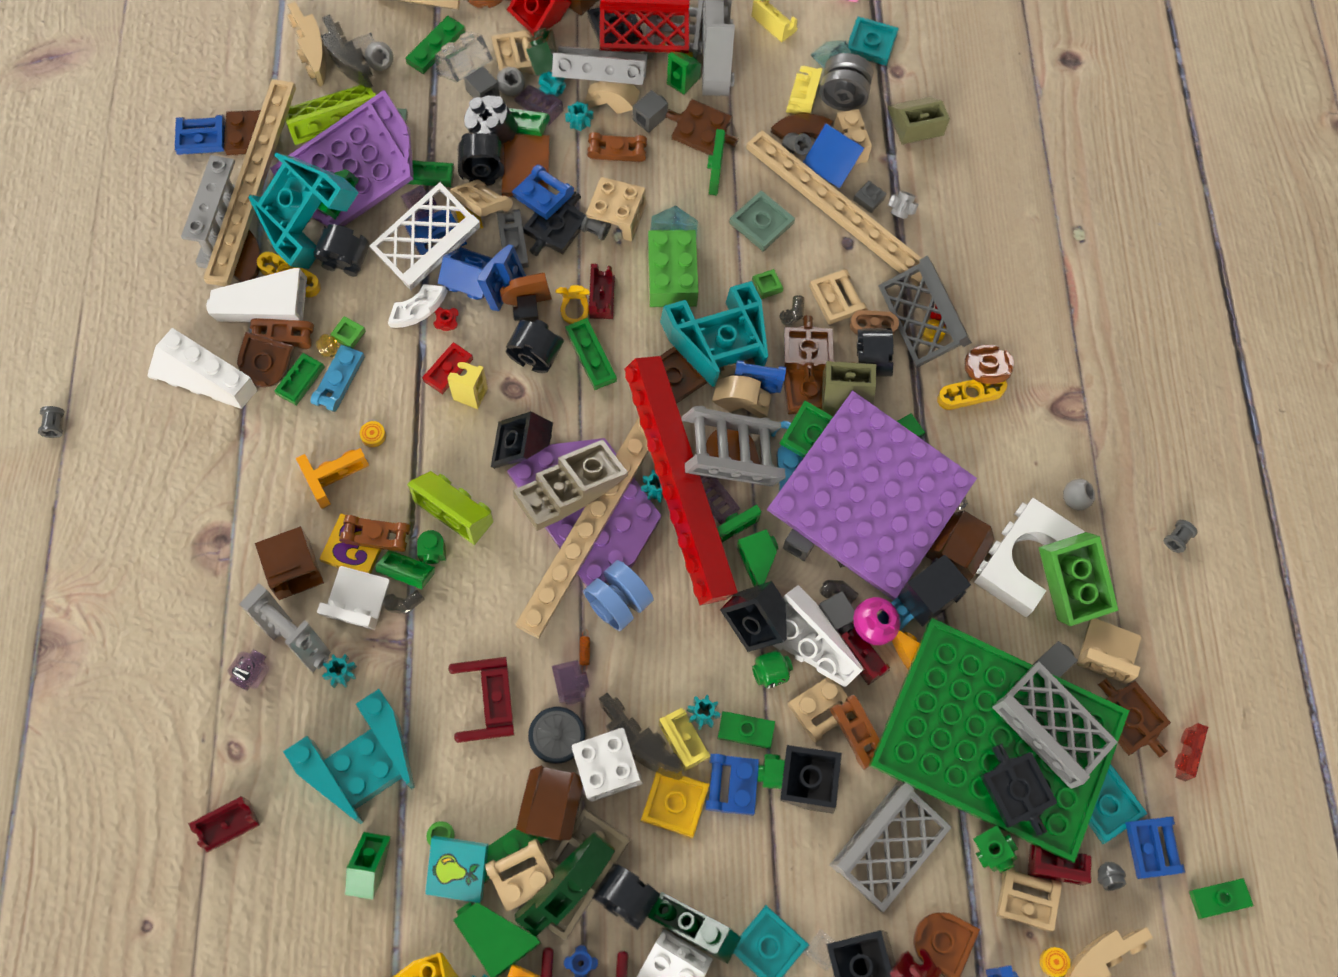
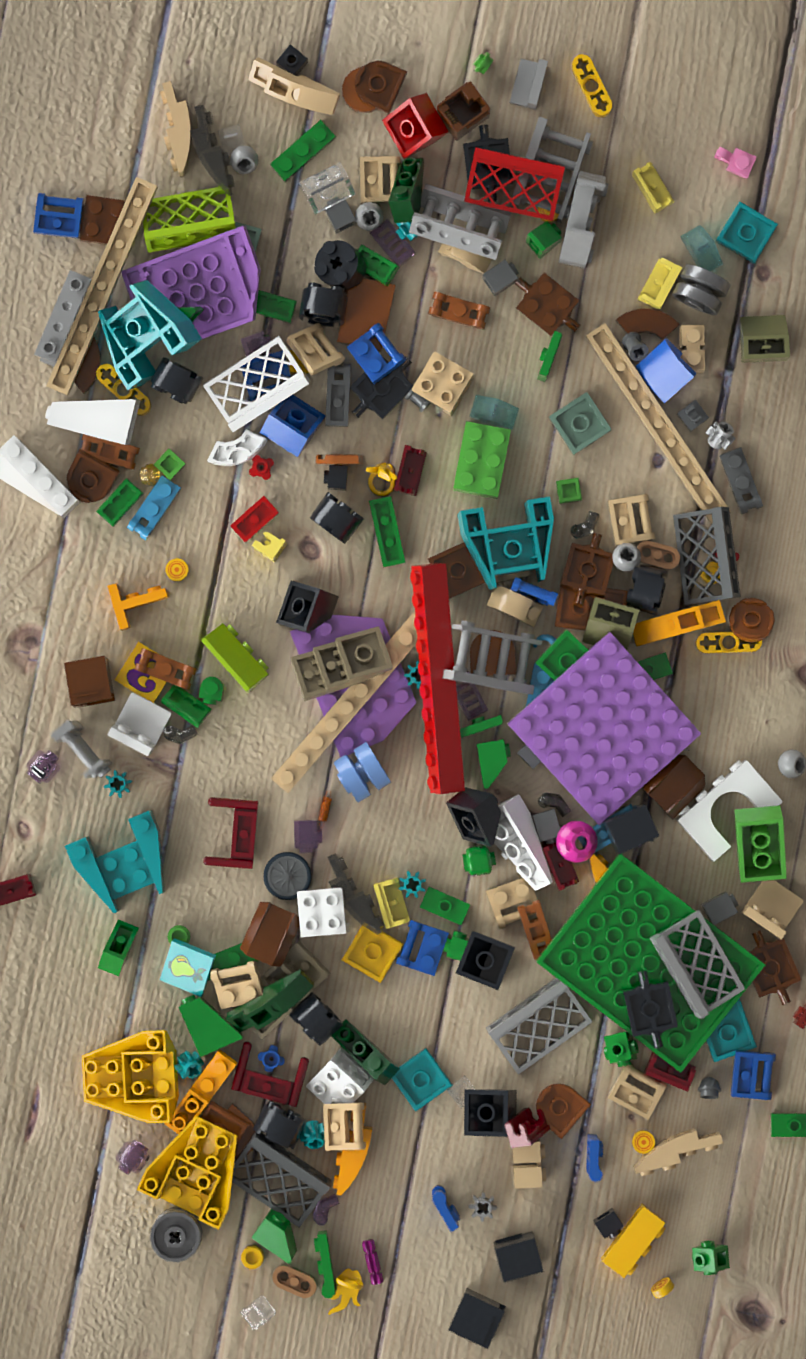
camera: 20 degrees right, 20 degrees up
(498, 273) = (322, 437): blue slope -> none
(579, 116) = (428, 276): teal gear -> none
(845, 325) = (626, 557): none -> light grey piece
(916, 378) = (678, 623): none -> light orange slope
(934, 243) = (740, 480): none -> dark grey plate

